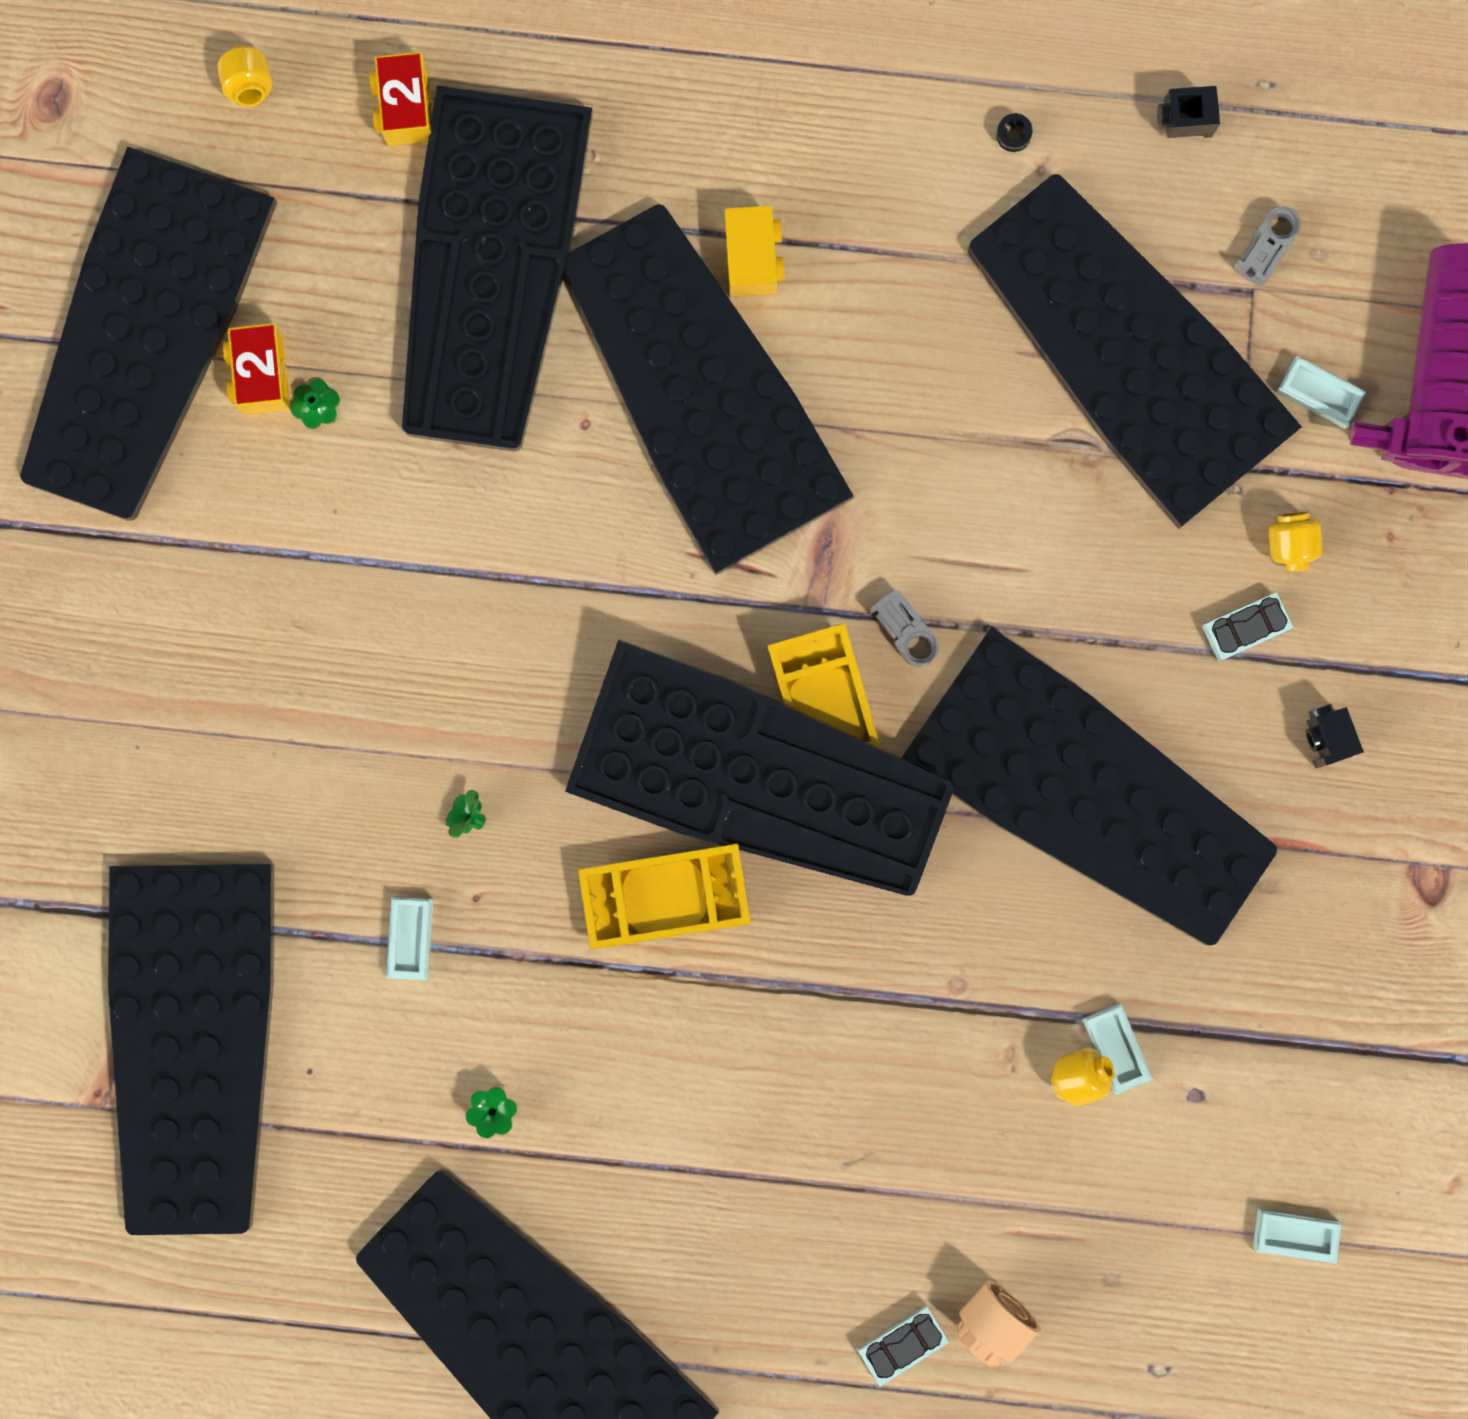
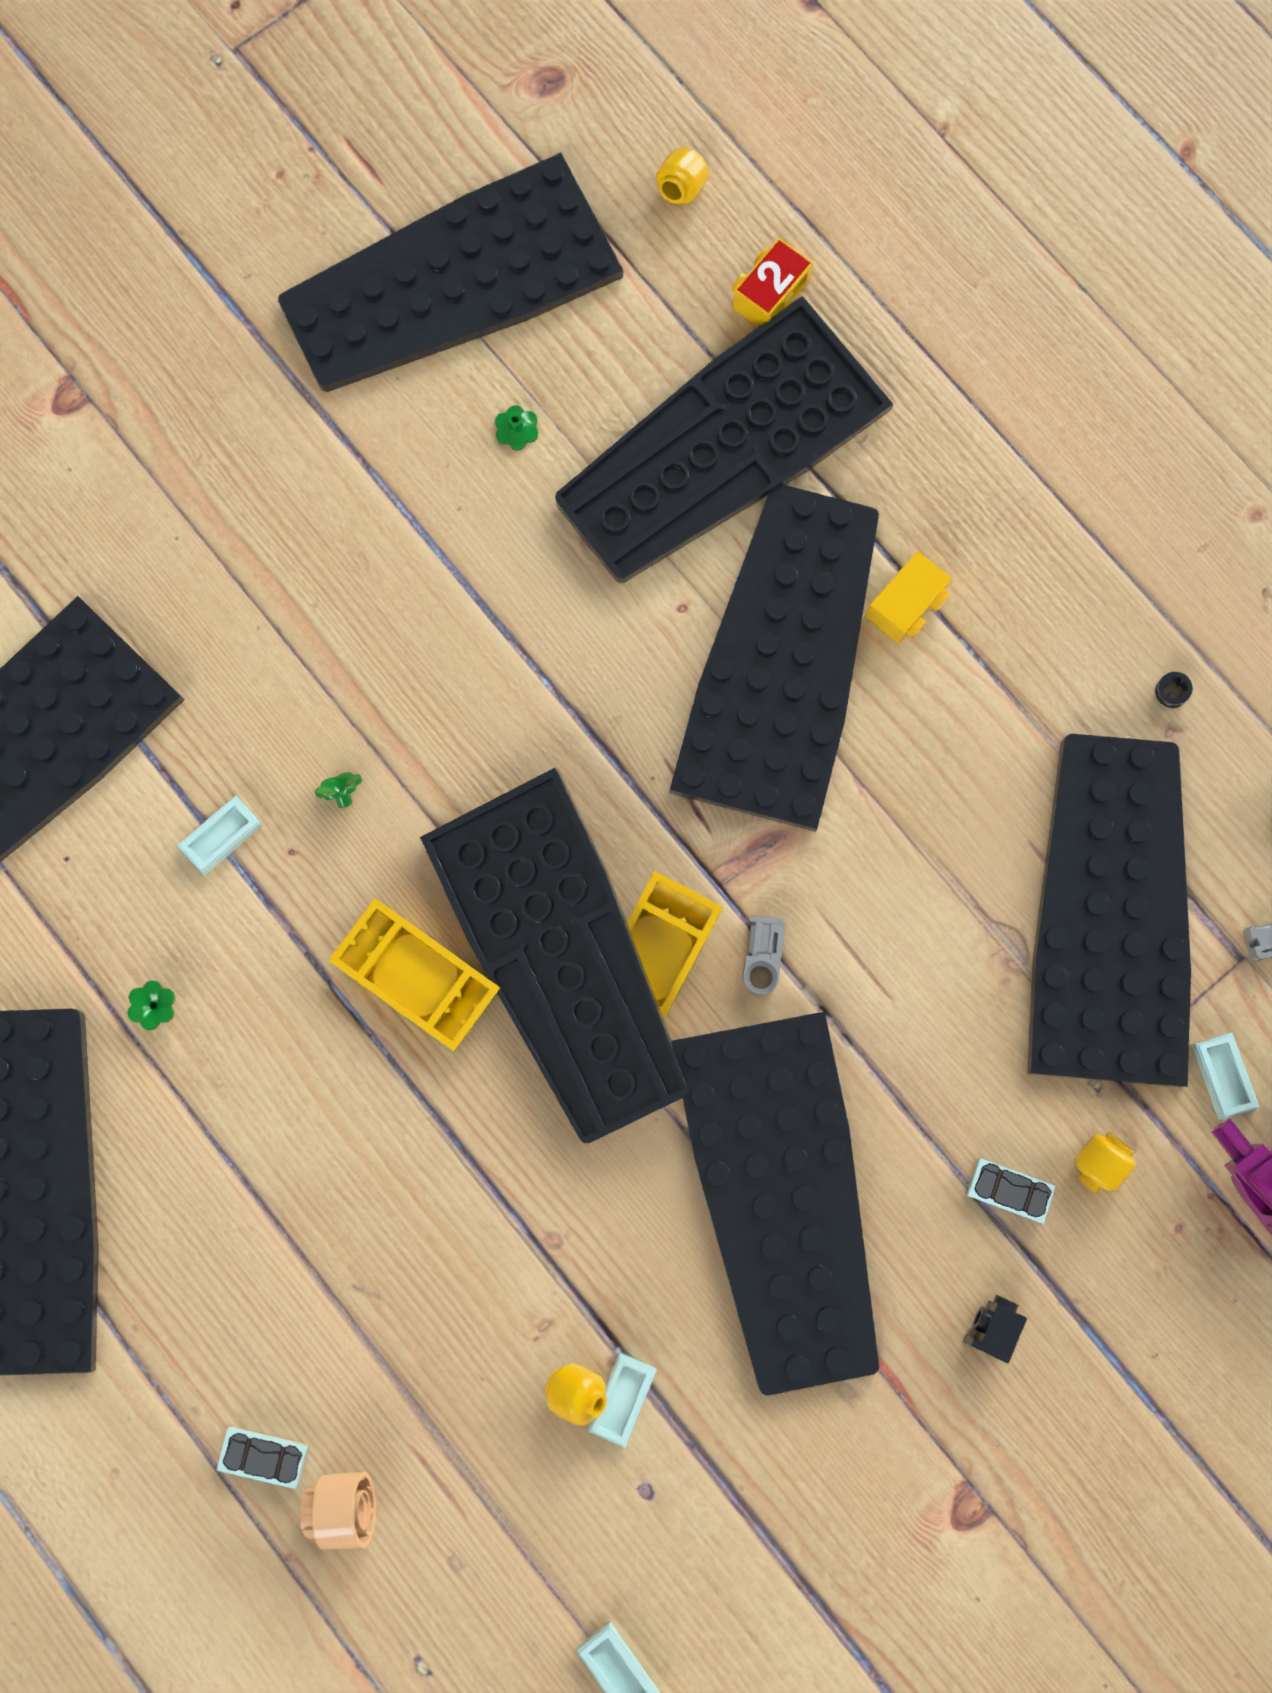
camera: 45 degrees right, 5 degrees down
(257, 369) = (500, 368): brick -> none

